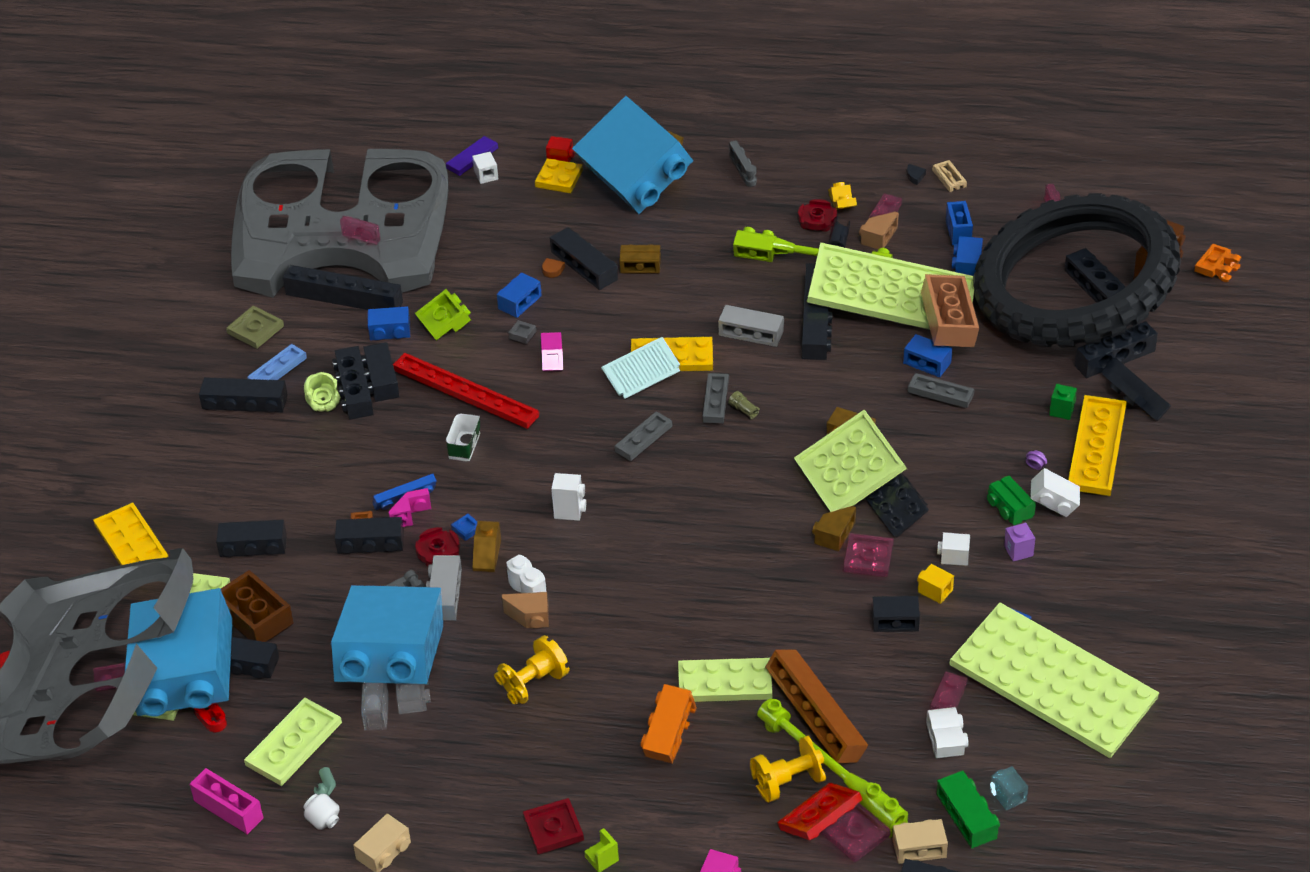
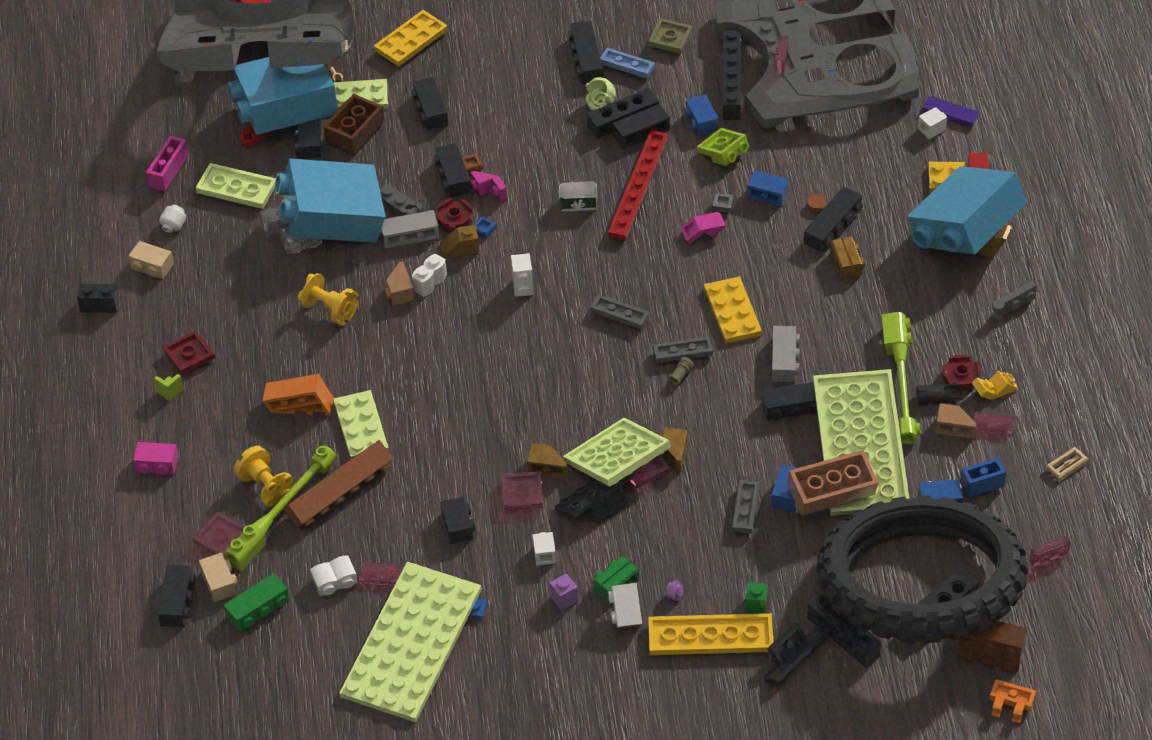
camera: 75 degrees right, 5 degrees up
(328, 782) = (202, 217): sand green arm -> none
(388, 498) = (515, 187): blue plate -> none
(641, 368) = (701, 291): light aqua window -> none
(820, 811) = (230, 506): red plate -> none
(915, 173) = (1057, 436): black tile -> none
(935, 583) = (499, 541): yellow brick -> none
(1009, 788) = (284, 626): clear light blue brick -> none

